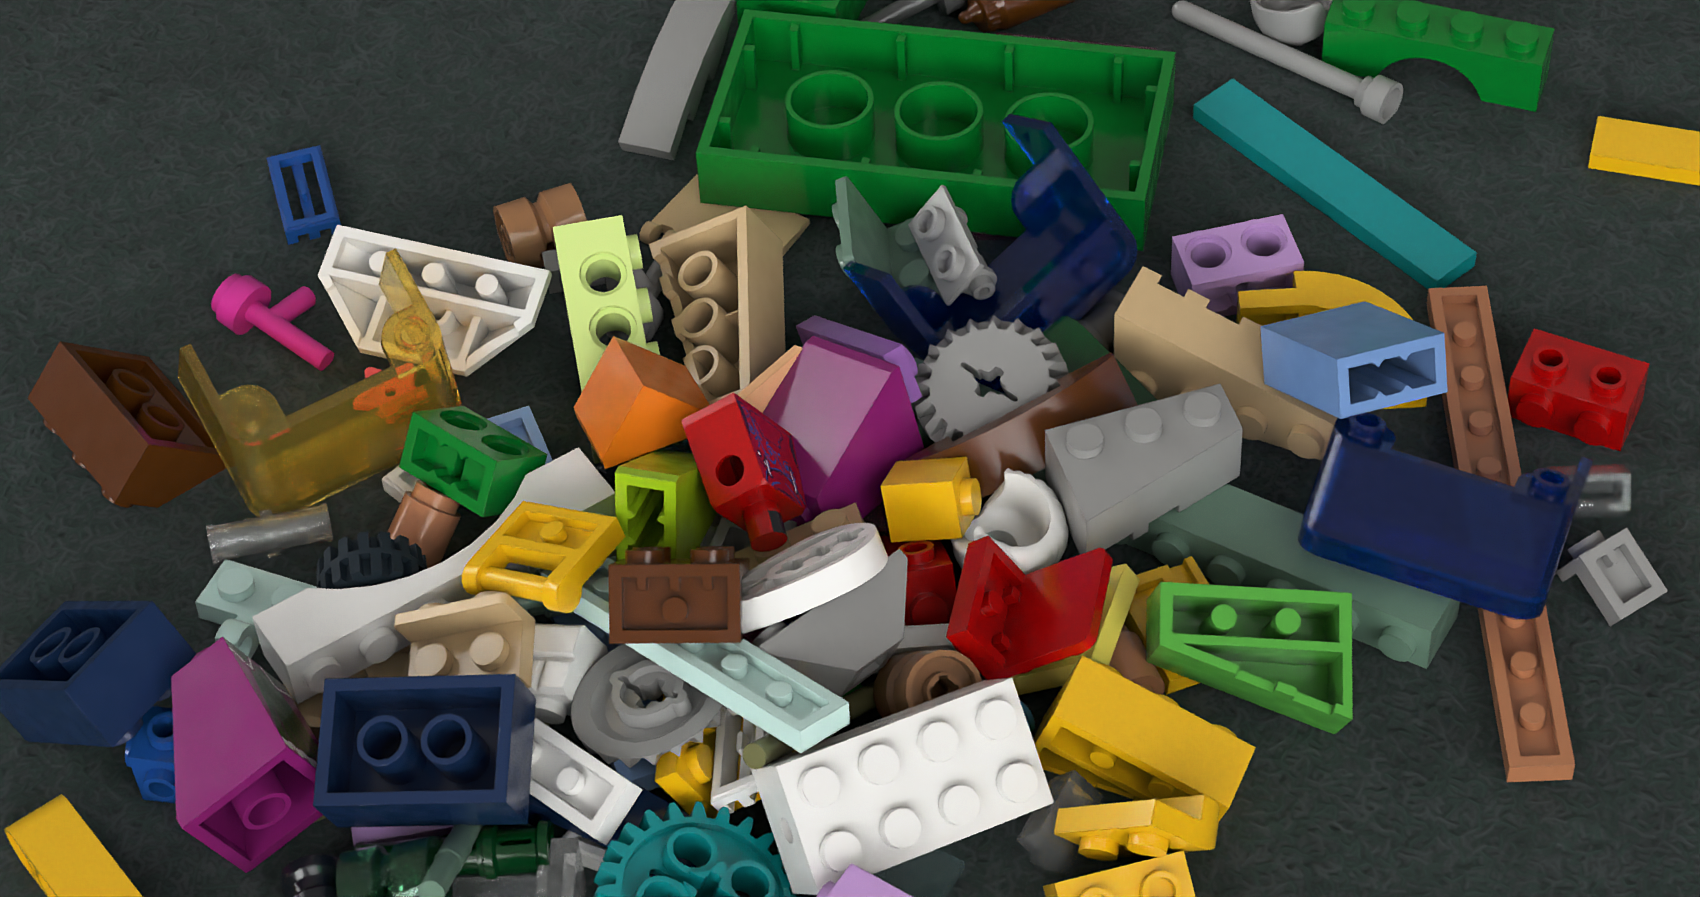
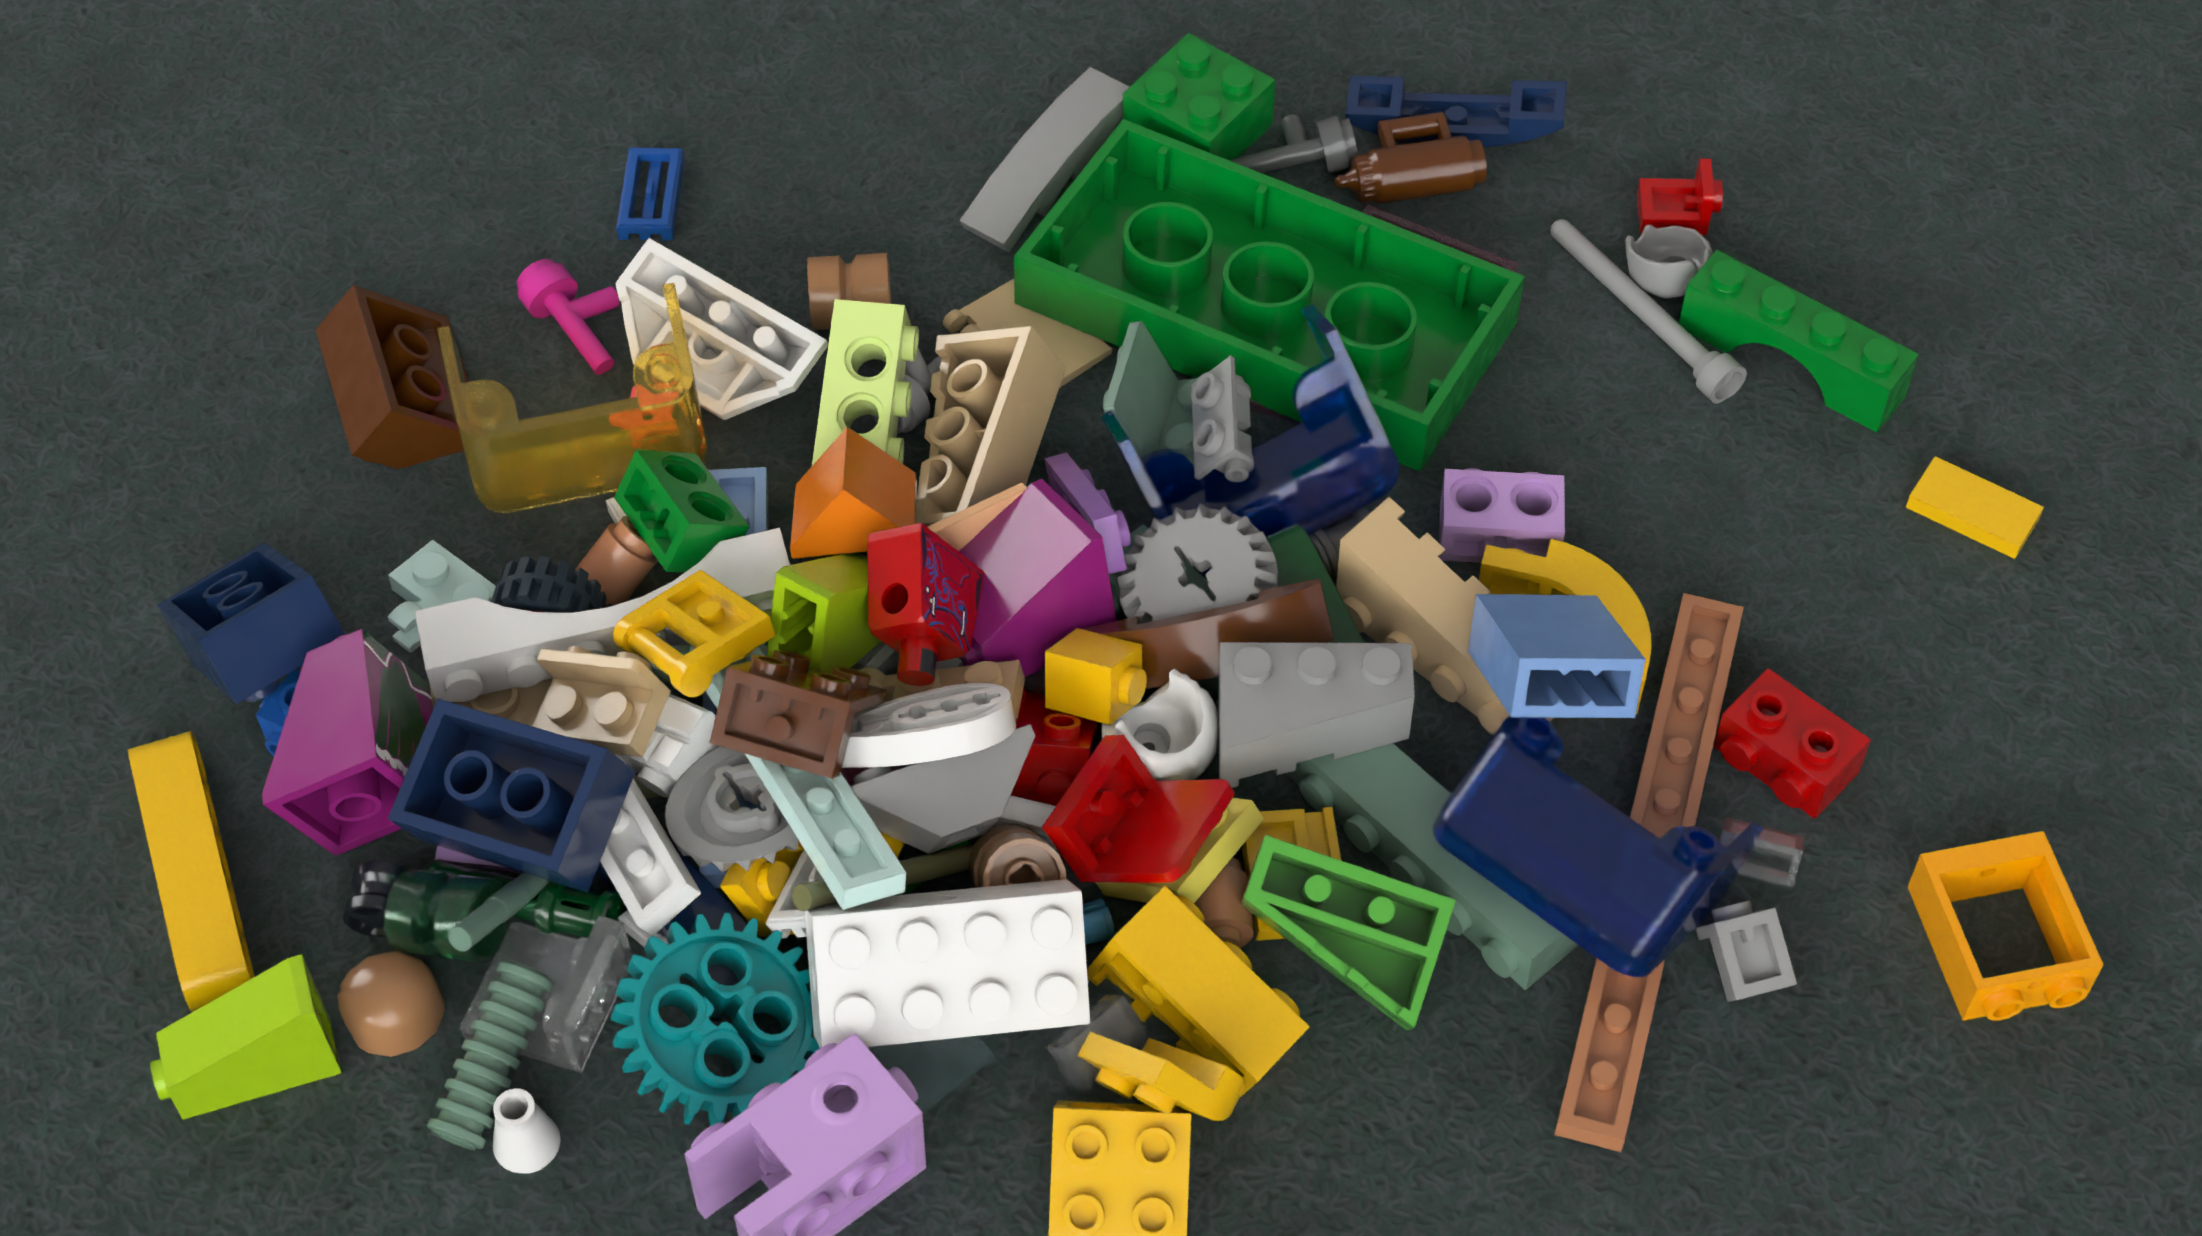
camera: 15 degrees right, 5 degrees up
(269, 533) = (482, 525): clear pin -> none
(1334, 186) = (1639, 458): teal tile -> none

